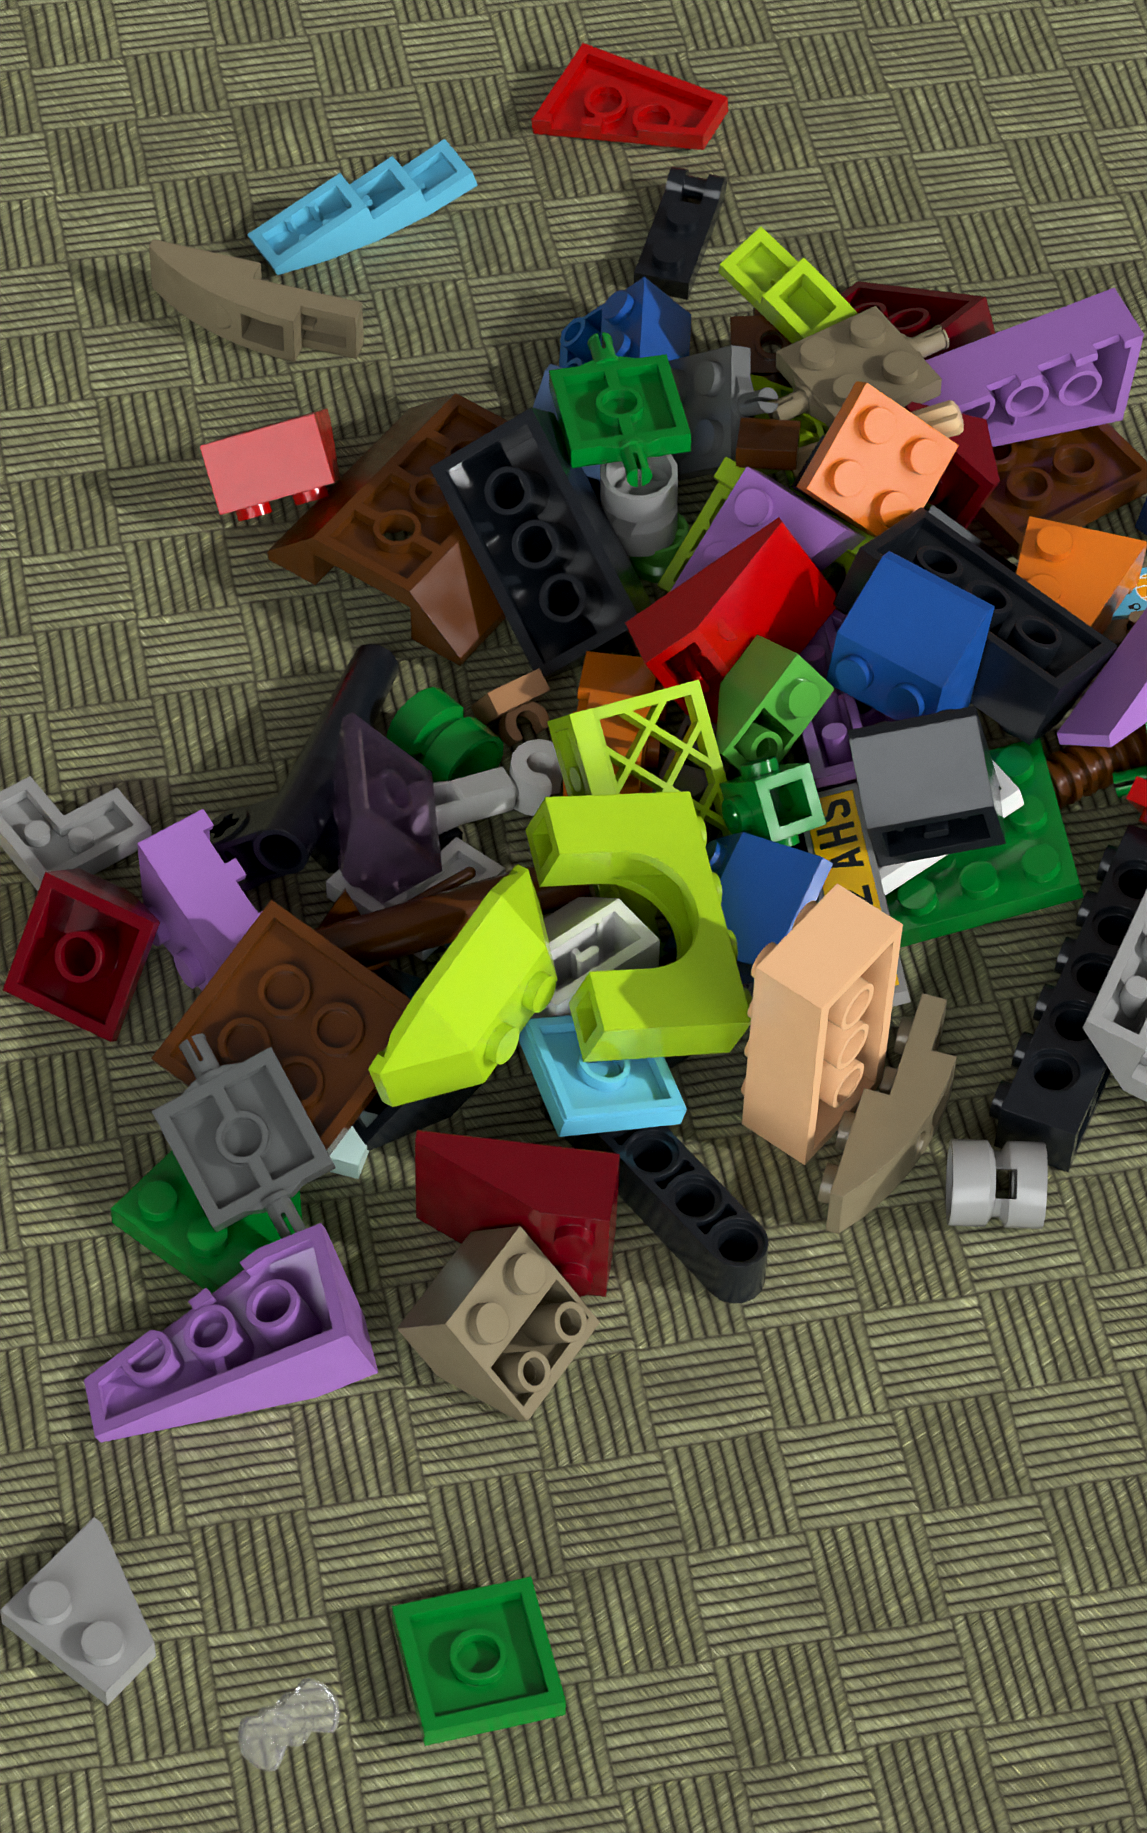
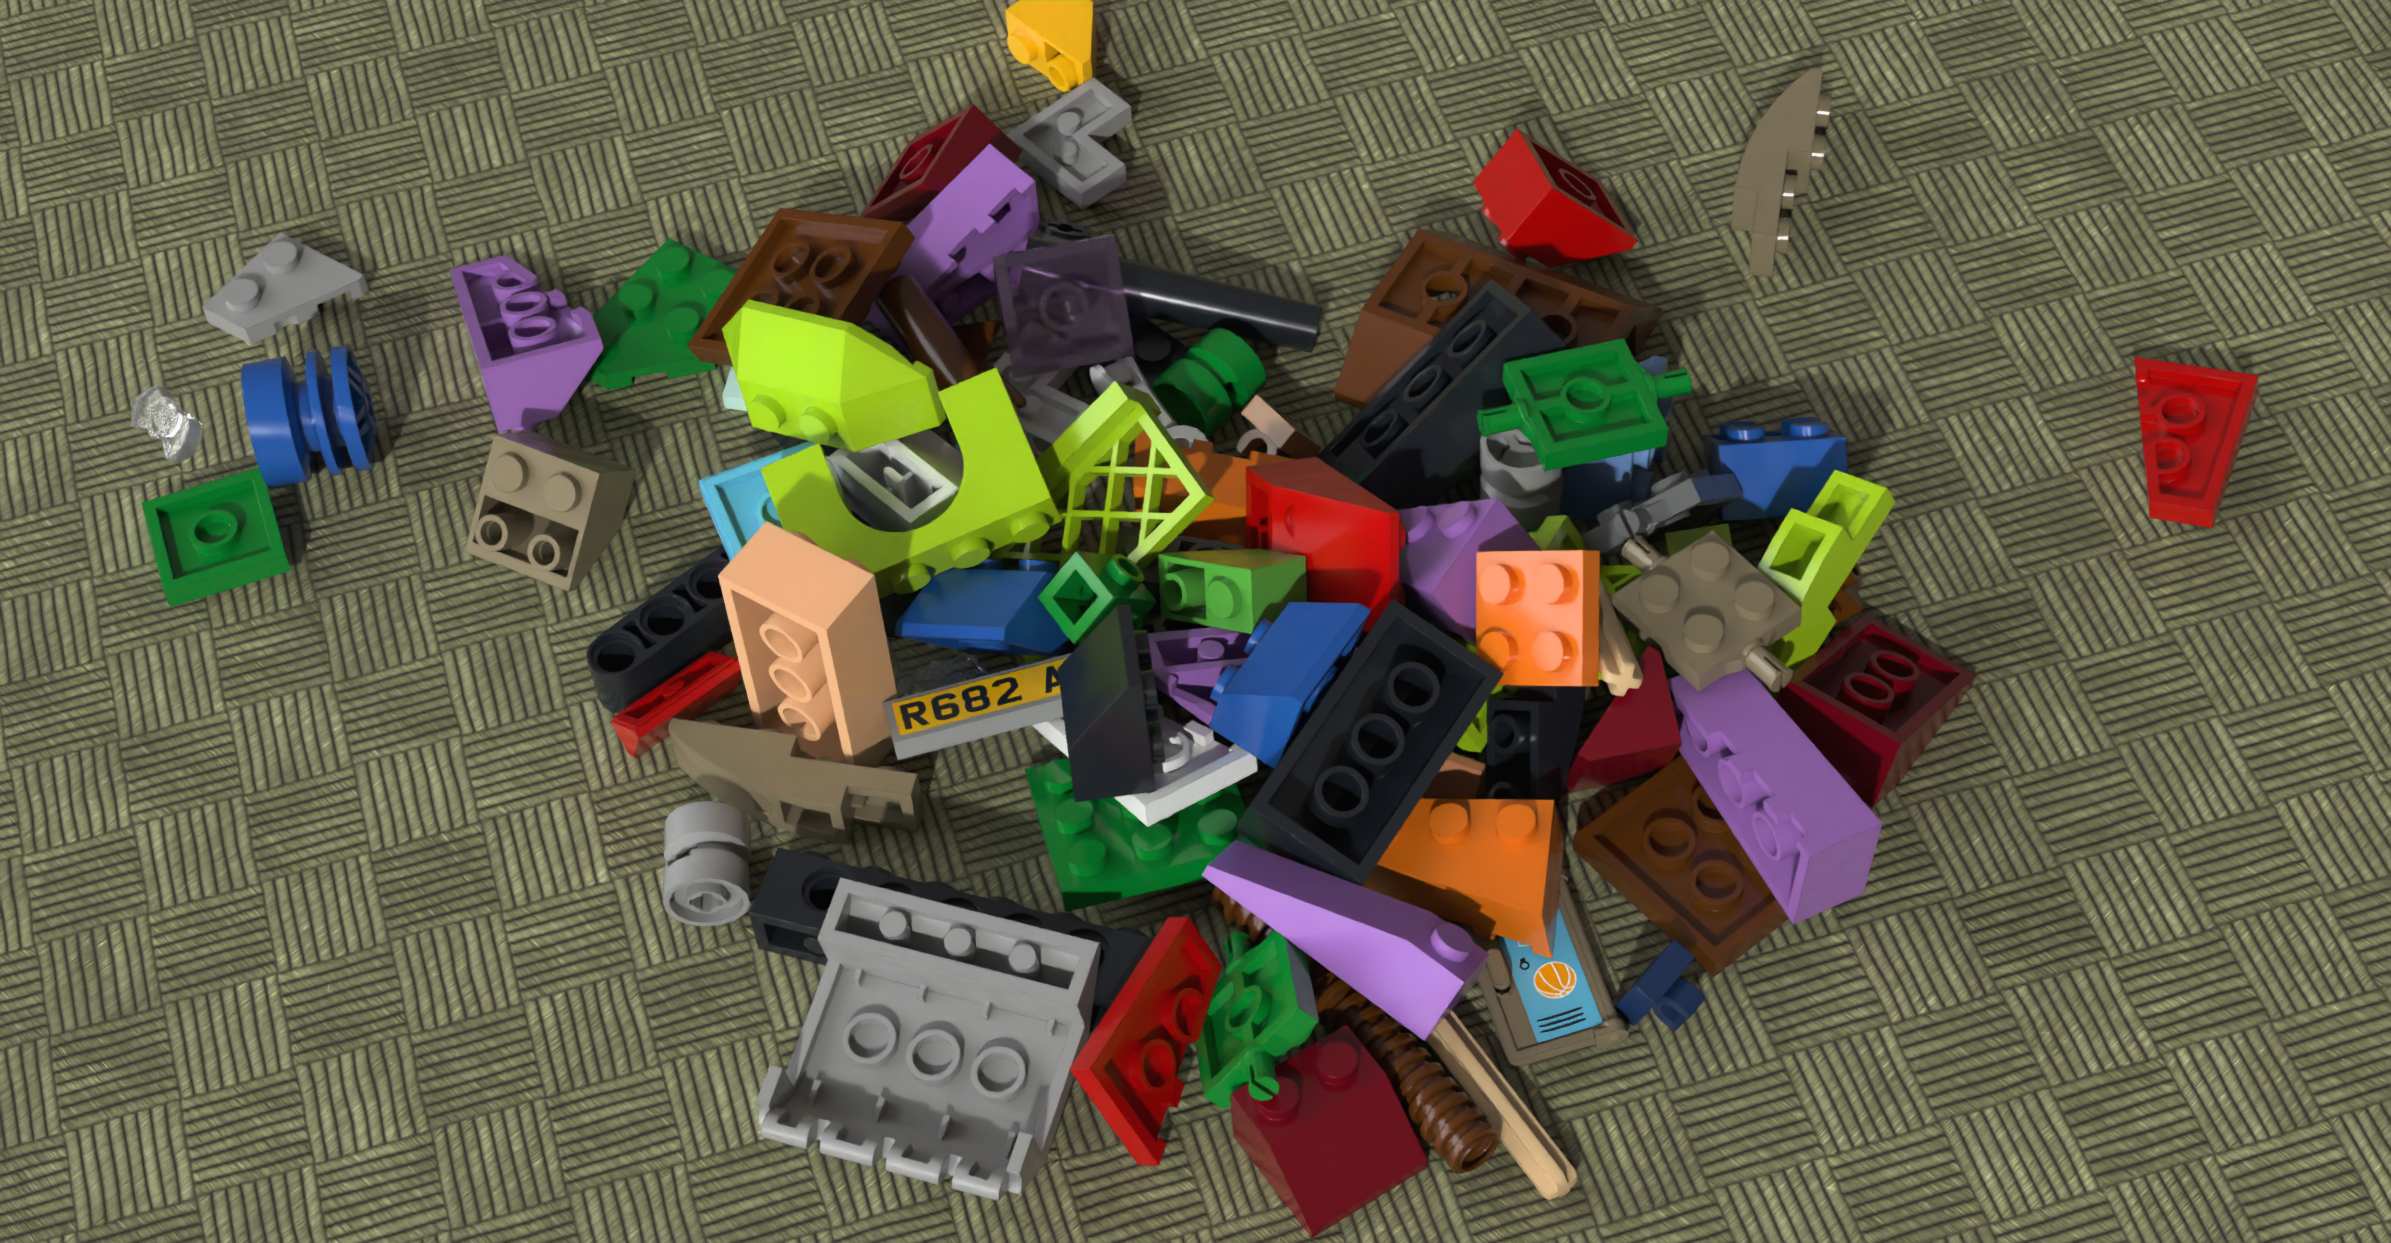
camera: 90 degrees right, 0 degrees up
(243, 1138) = (697, 281): dark grey plate -> none
(348, 1535) = (308, 416): none -> blue wheel
(353, 215) = (1943, 236): medium azure slope -> none
(553, 1192) = (641, 498): dark red slope -> none
(681, 232) = (2005, 508): black plate -> none
(768, 444) = (1587, 531): reddish brown tile -> none
(793, 1199) = (679, 697): none -> red slope

